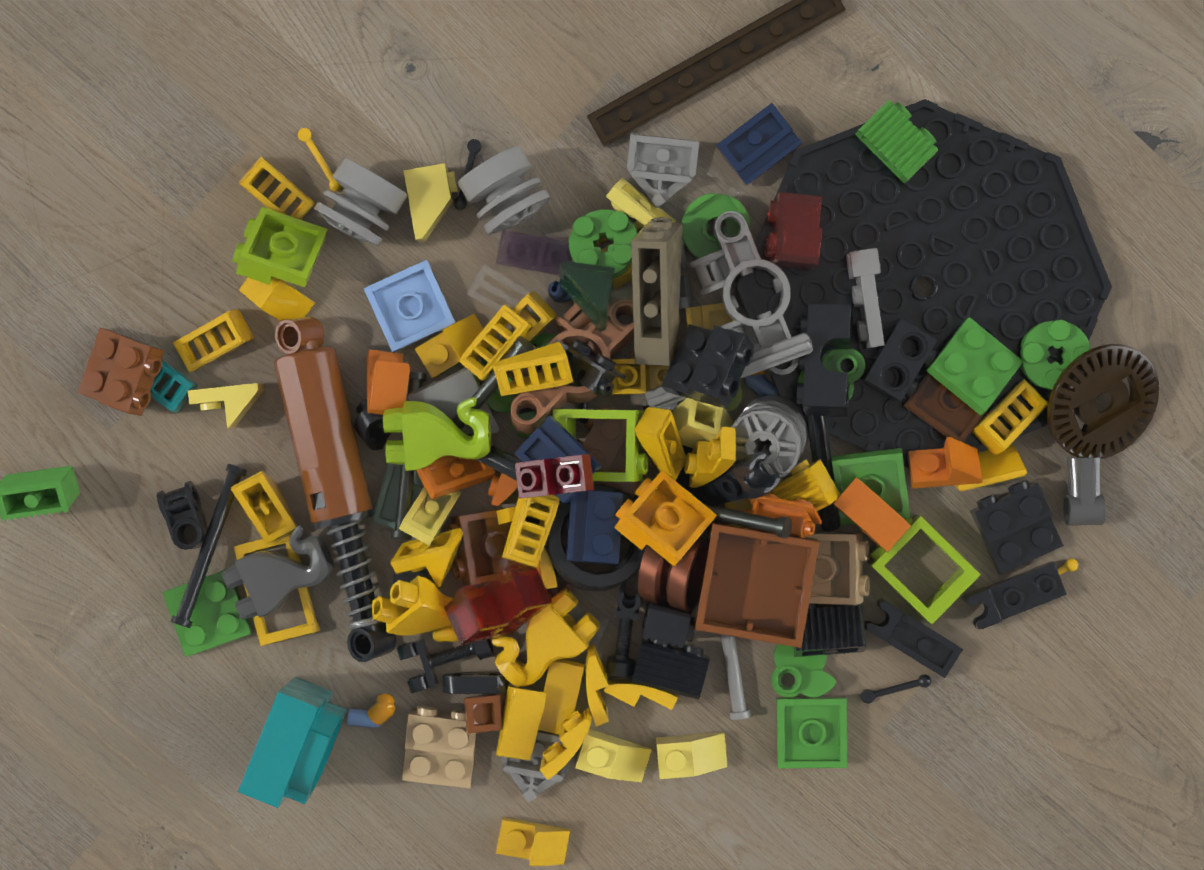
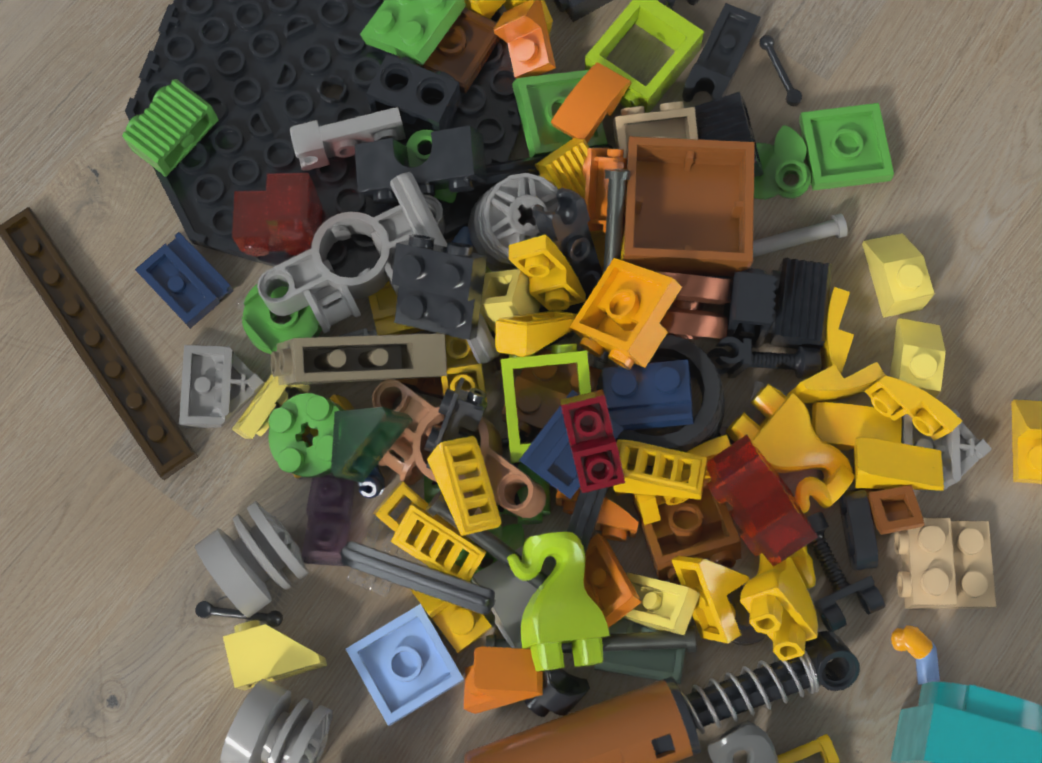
camera: 90 degrees left, 15 degrees down
(472, 323) = (418, 577): none -> axle

